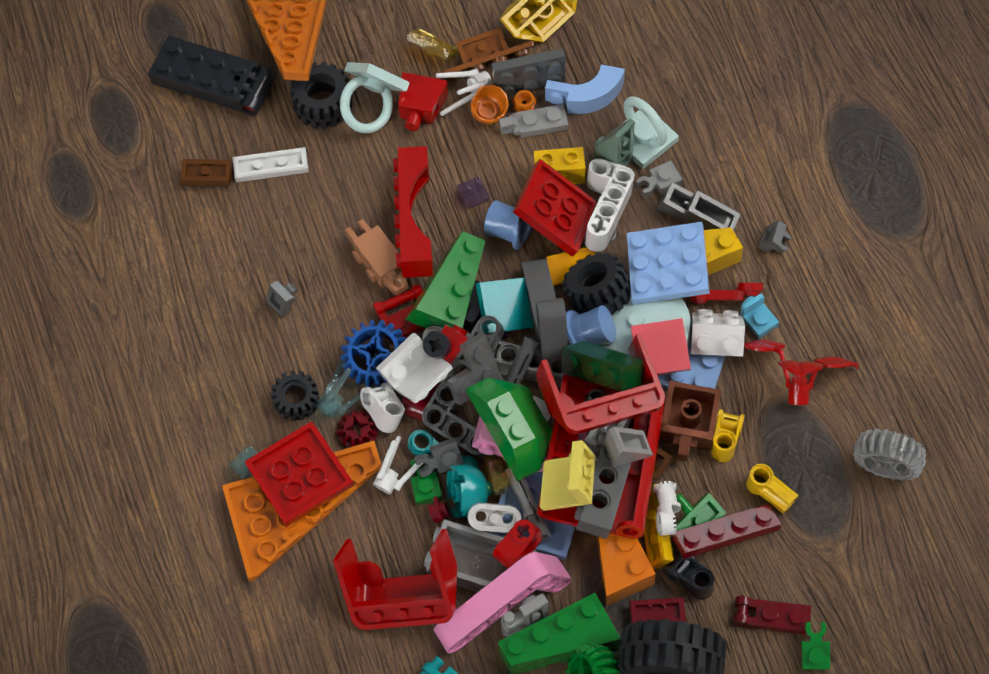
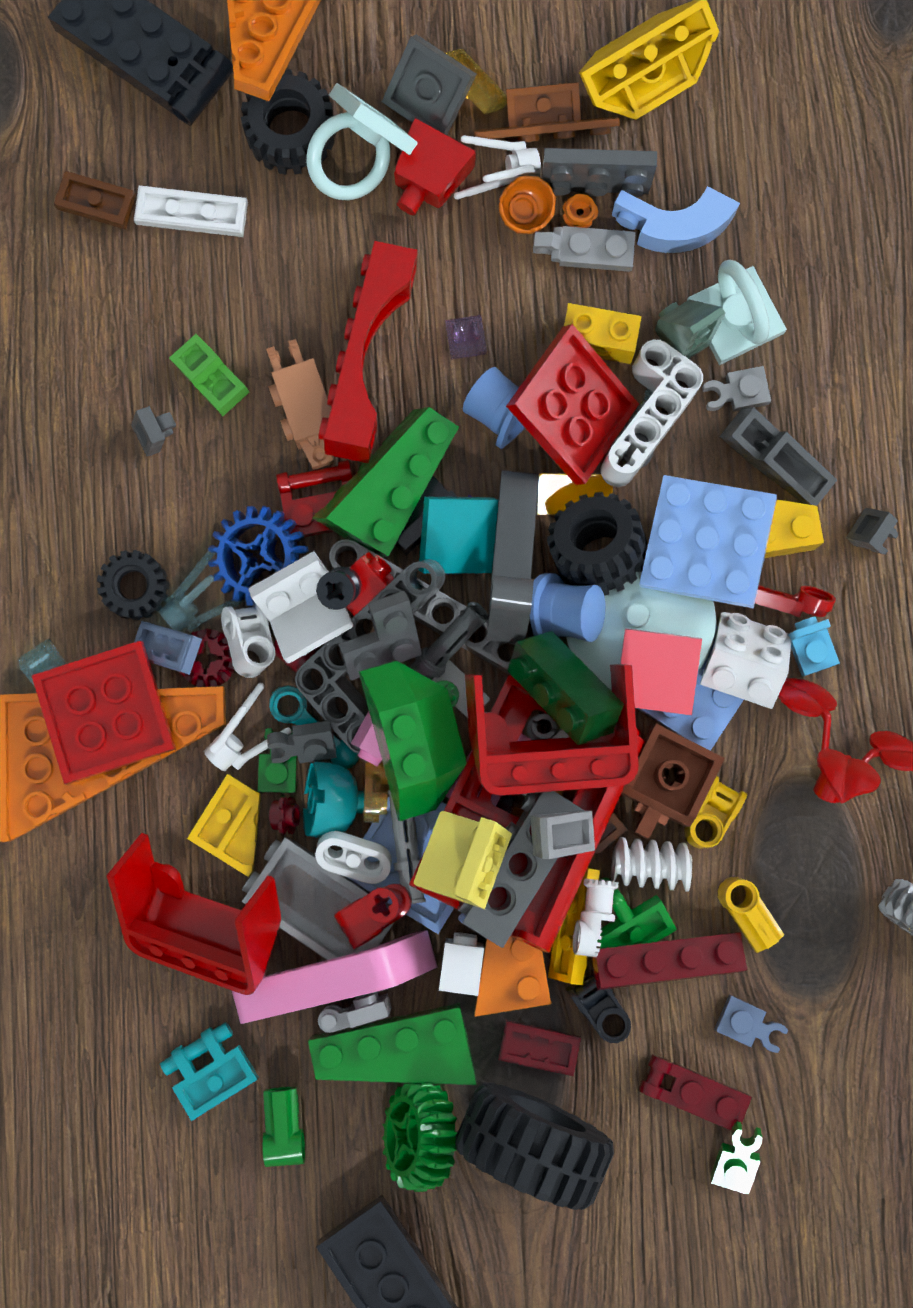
camera: 15 degrees right, 20 degrees up
(309, 257) = (209, 374): none -> bright green slope
(333, 423) = (169, 647): none -> sand blue plate
(403, 527) = (230, 825): none -> yellow wing
(405, 51) = (428, 85): none -> dark grey plate
(587, 567) = (462, 964): none -> white brick
(696, 473) = (652, 863): none -> white piece
(790, 562) = (745, 1023): none -> sand blue plate

